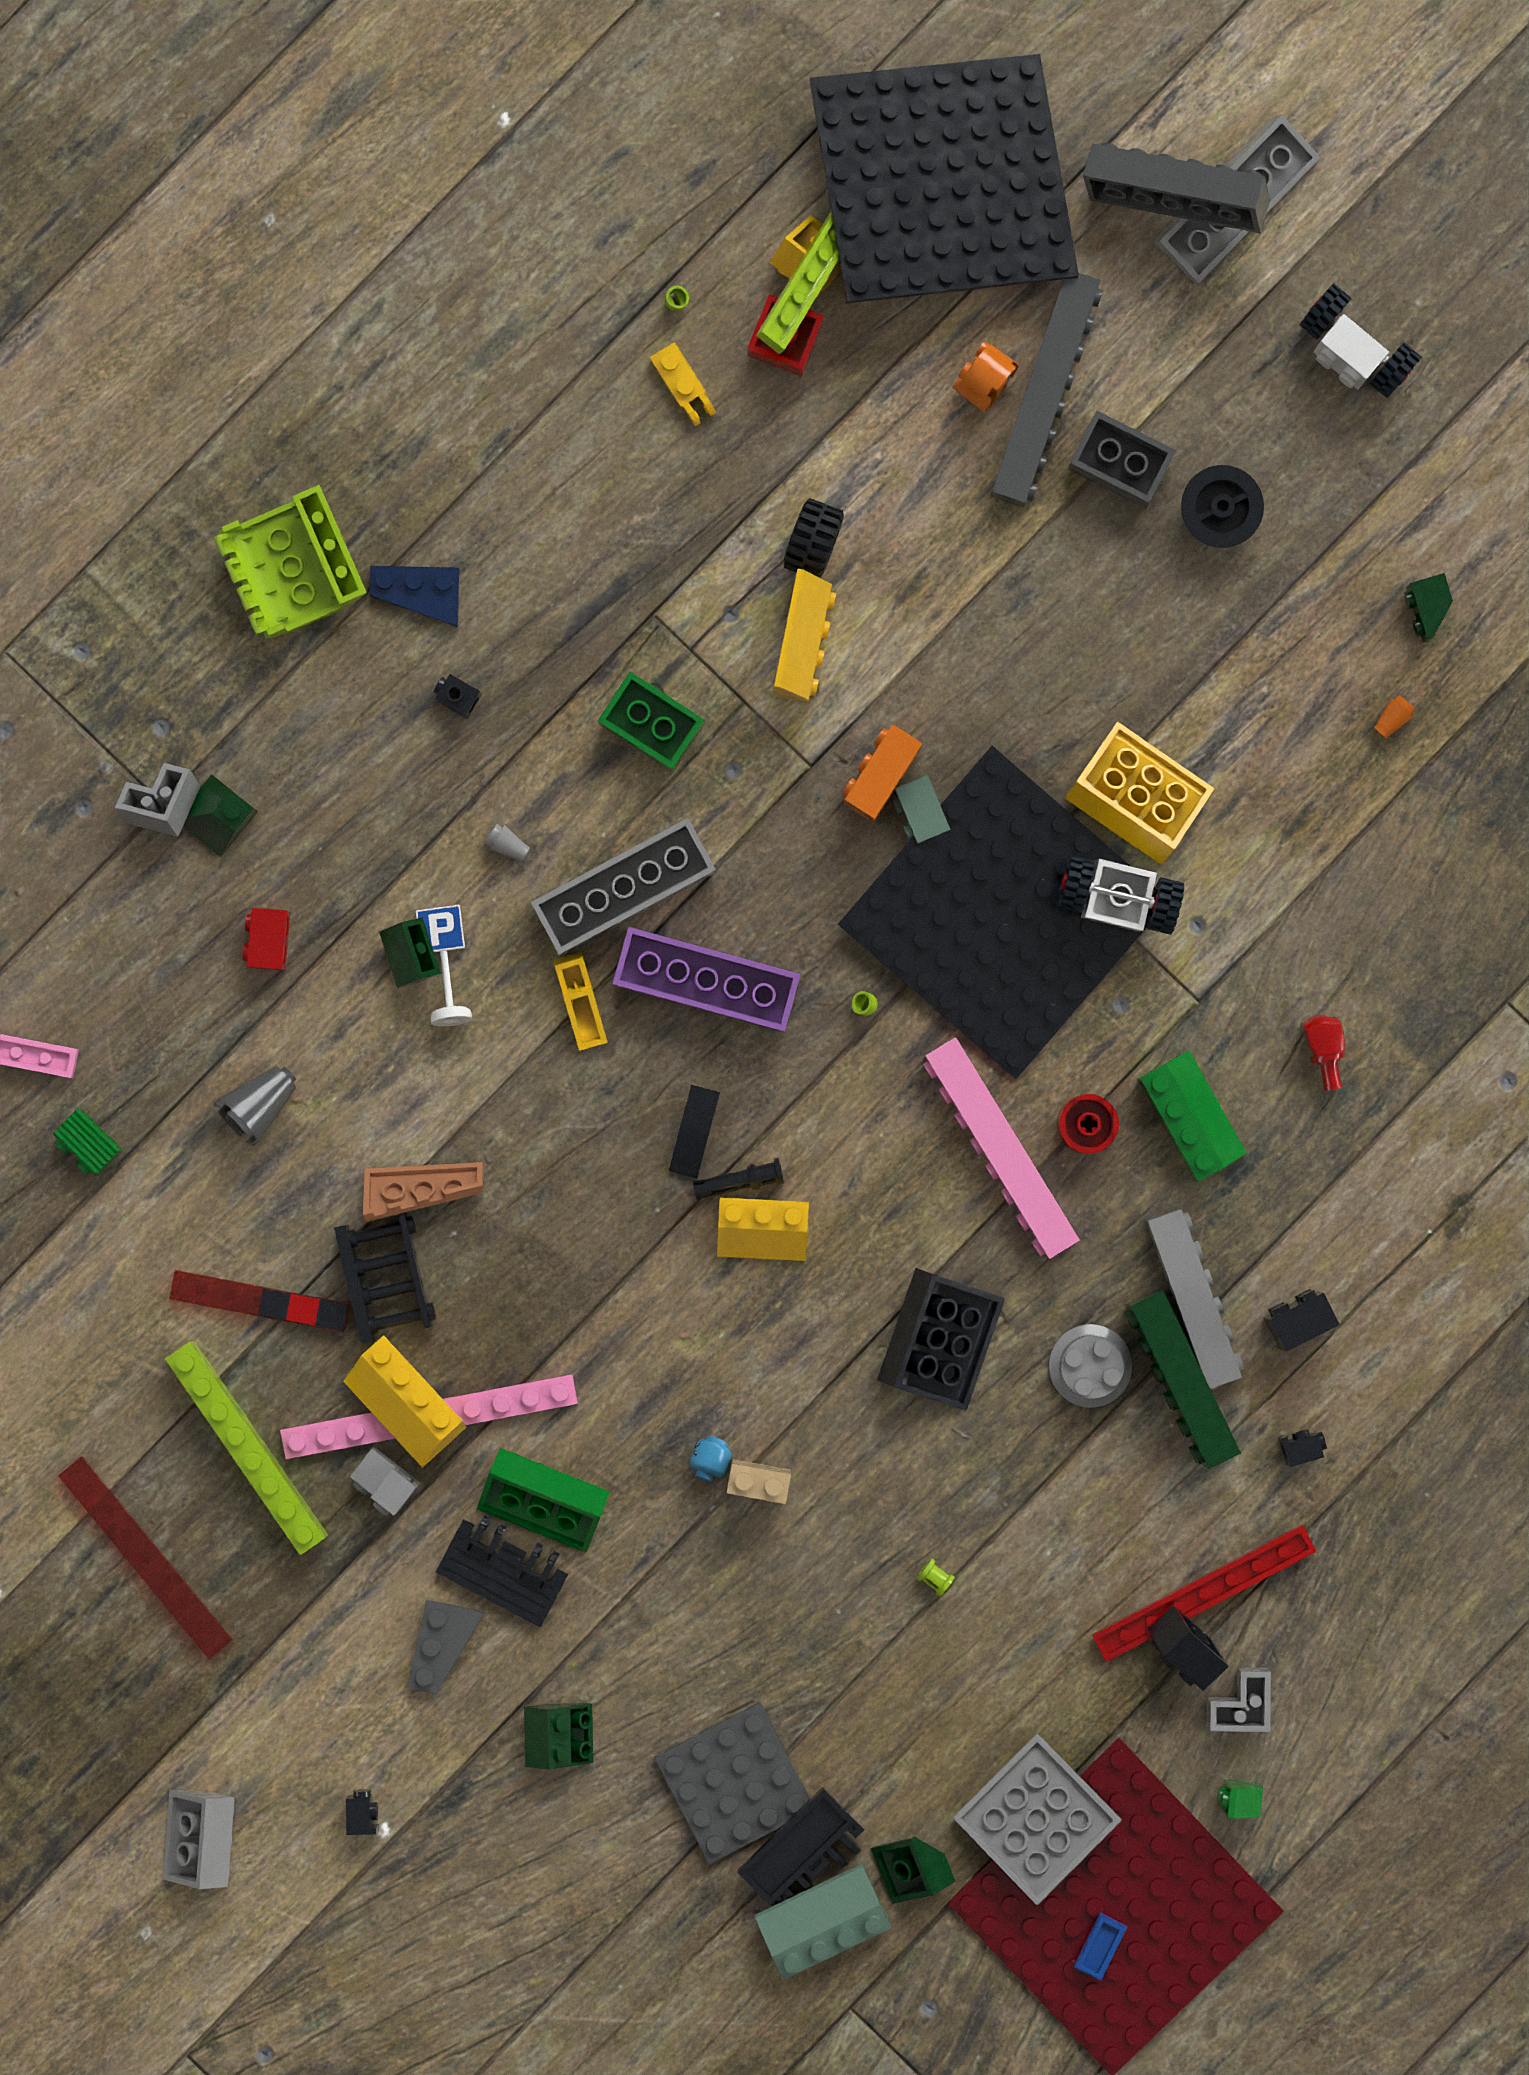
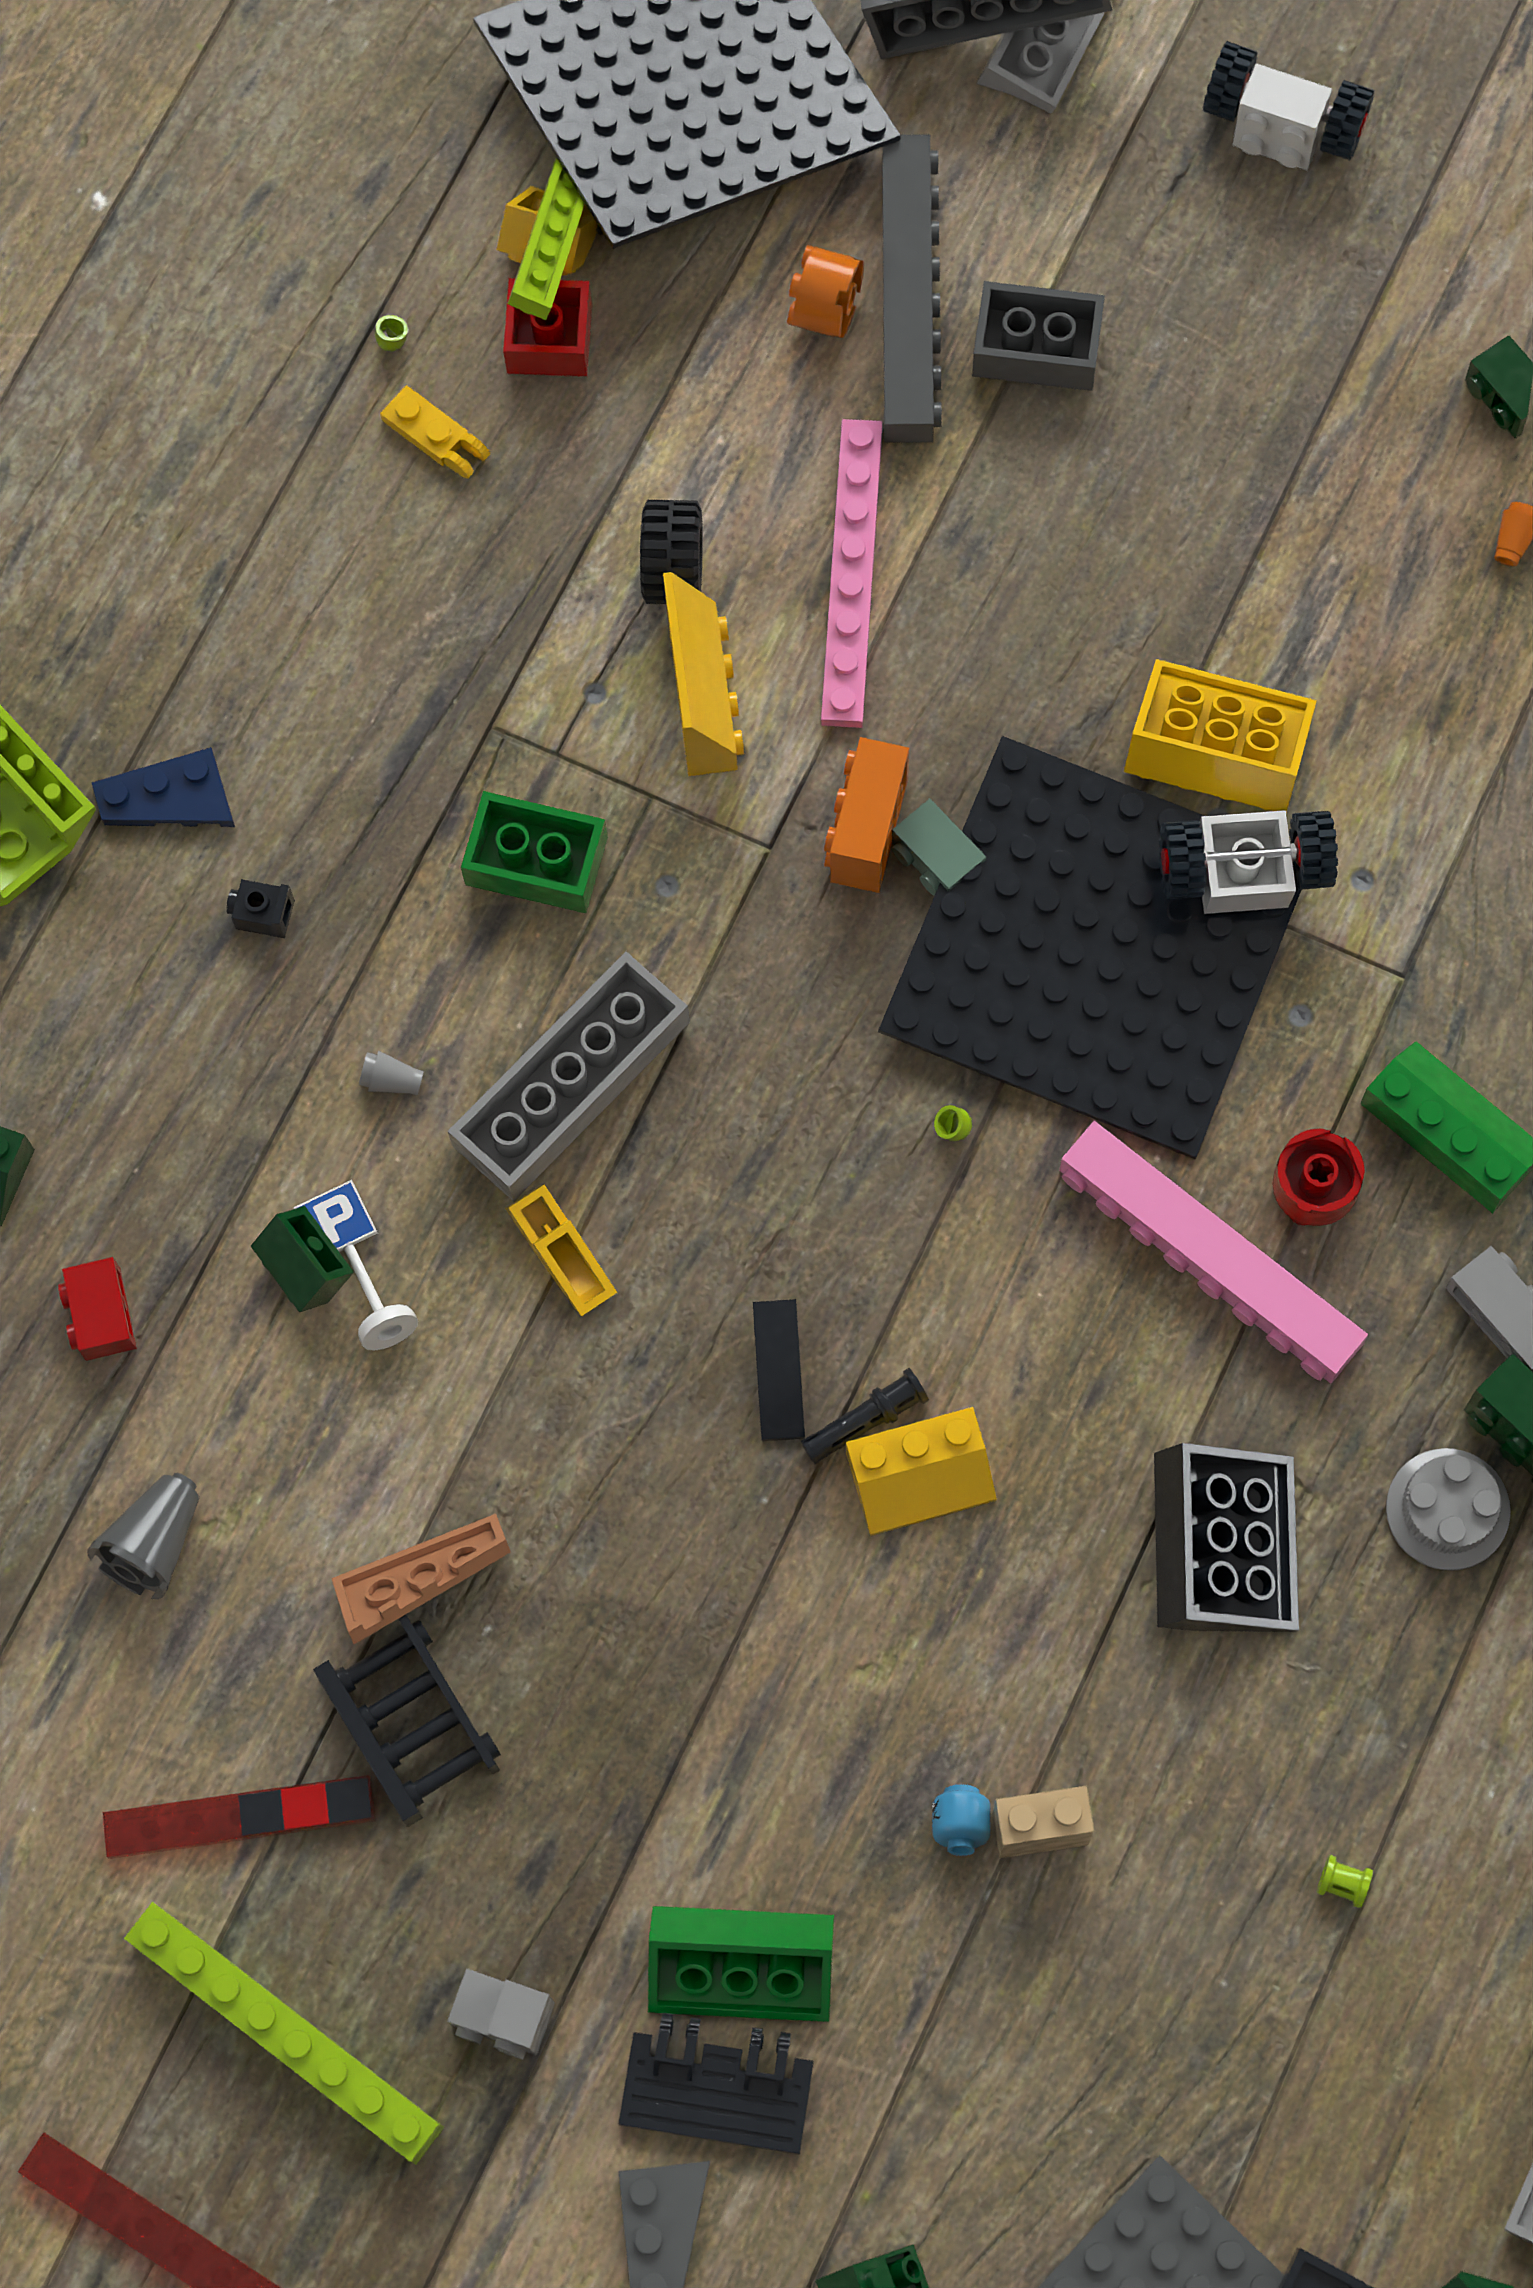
camera: 15 degrees left, 15 degrees down
(403, 1401) = (492, 1883): yellow slope -> none
(469, 1407) = (534, 1901): bright pink plate -> none
(706, 979) = (725, 1159): medium lavender brick -> none
(934, 586) = (851, 574): none -> bright pink plate
(1222, 506) = (1190, 346): black piece -> none

